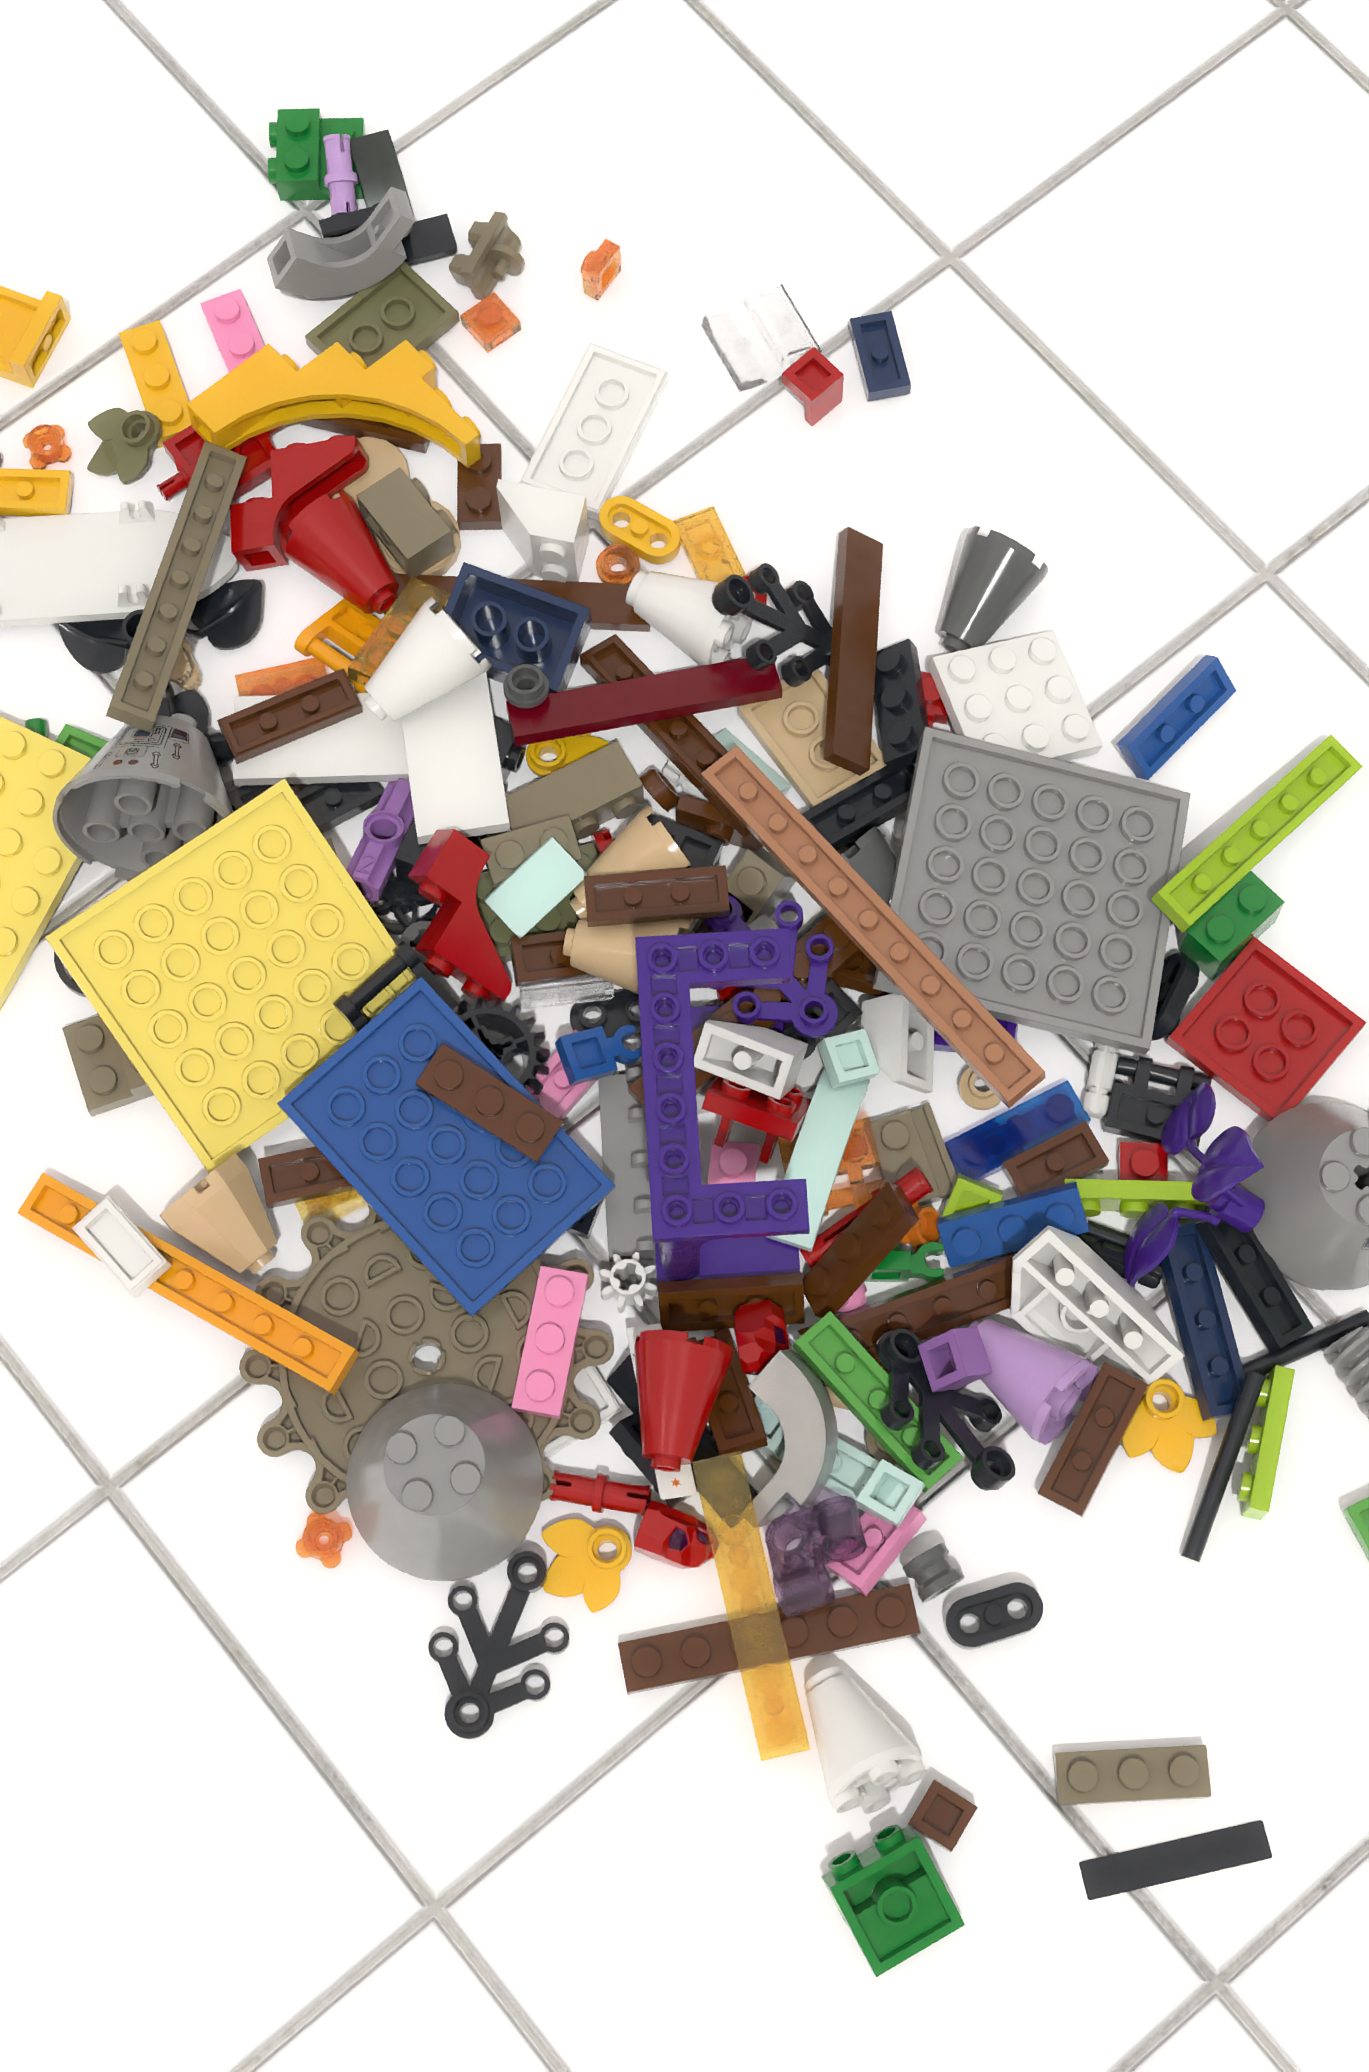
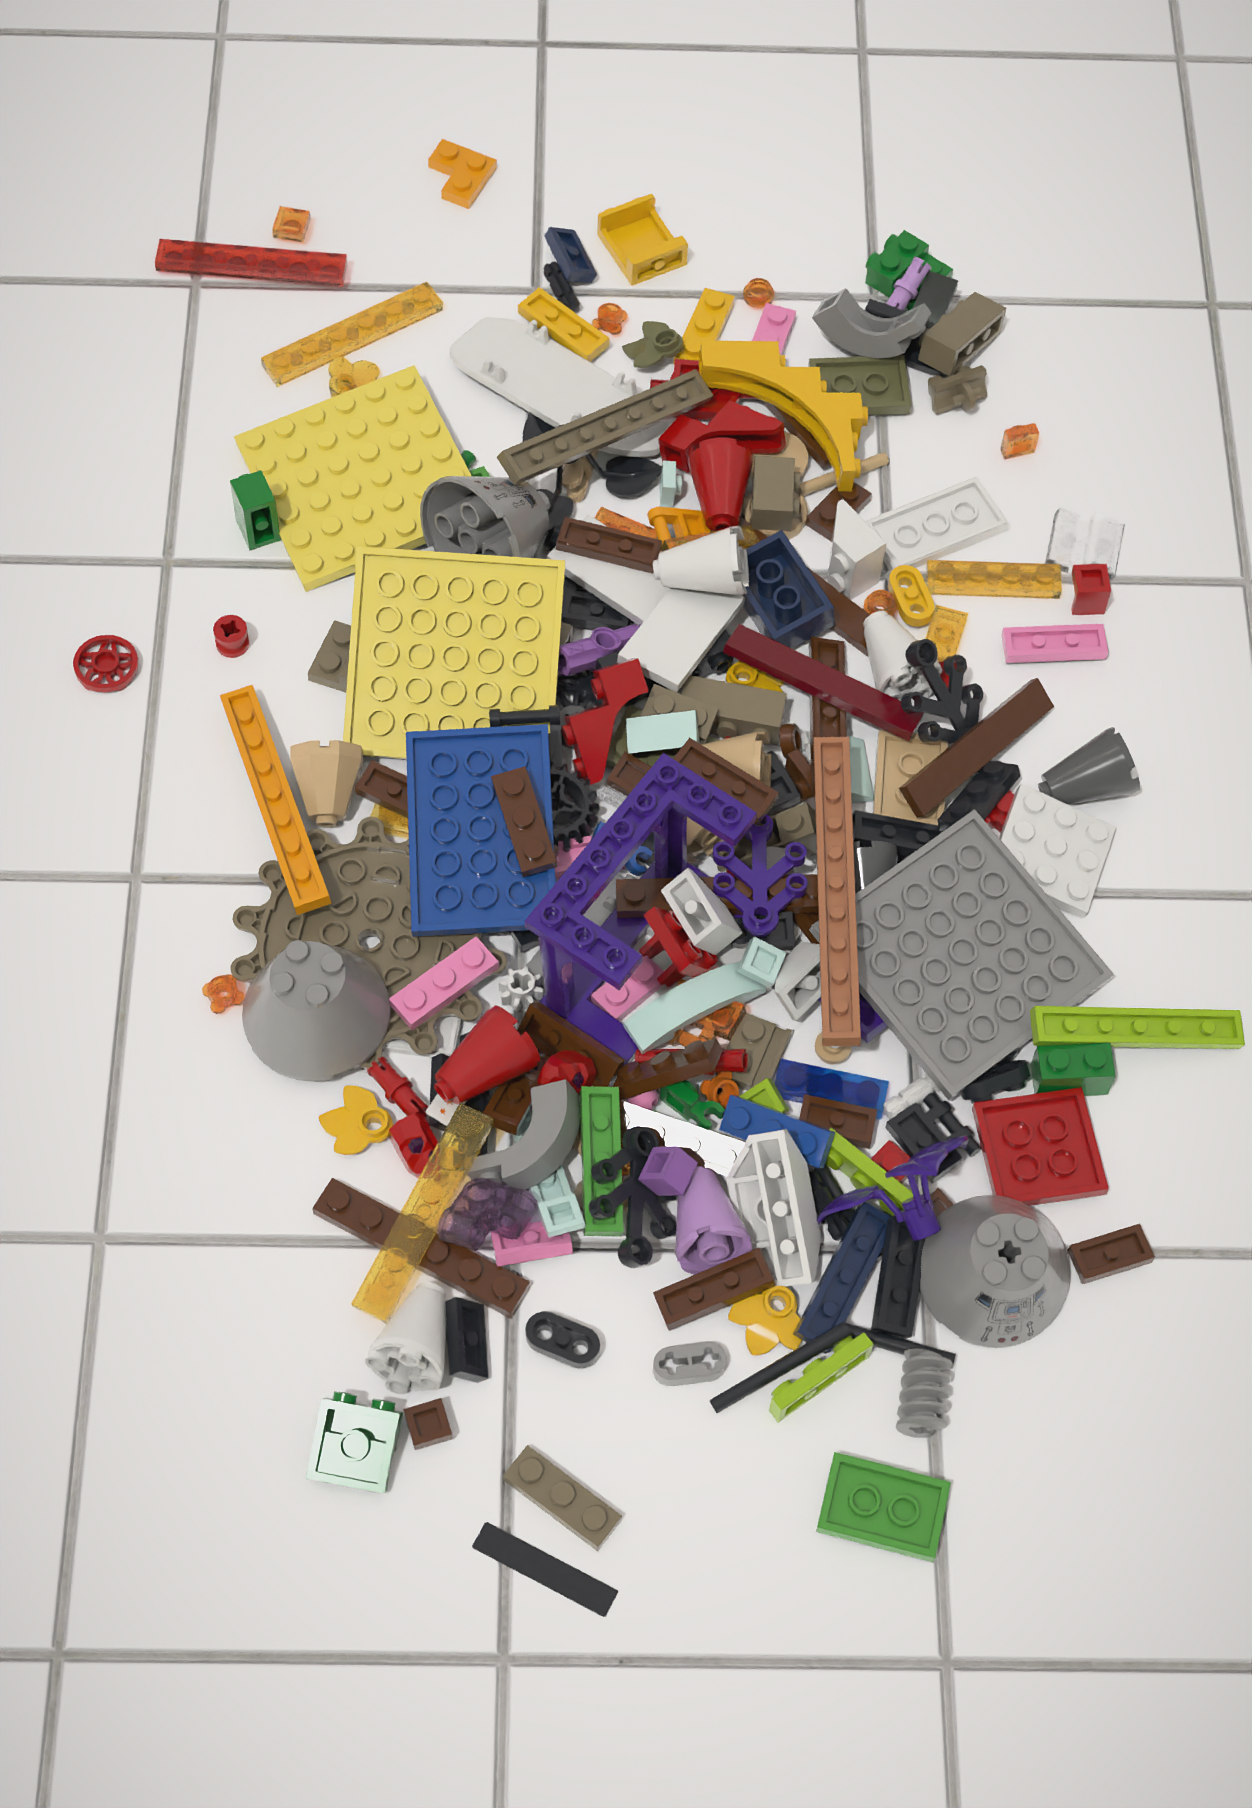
camera: 35 degrees right, 10 degrees down
(122, 1247) = (256, 750): white tile -> none
(181, 297) = (758, 293): none -> clear orange plate
(283, 594) = (669, 484): none -> light aqua plate
(441, 188) = (961, 333): none -> dark tan brick
(441, 457) = (829, 479): none -> tan bar
(490, 322) = (927, 427): clear orange plate -> none
(495, 1654) = (261, 1128): black plant -> none
(526, 677) = (757, 621): dark grey plate -> none
(703, 446) = (993, 579): none -> clear yellow plate
(826, 473) = (1054, 643): none -> bright pink plate
(879, 356) = (1148, 602): dark blue plate -> none
(903, 1697) = (466, 1340): none -> black plate
(933, 1572) = (548, 1286): dark grey wheel -> none
(1123, 1527) = (691, 1372): none -> light grey beam
(1176, 717) = (1149, 930): blue plate -> none

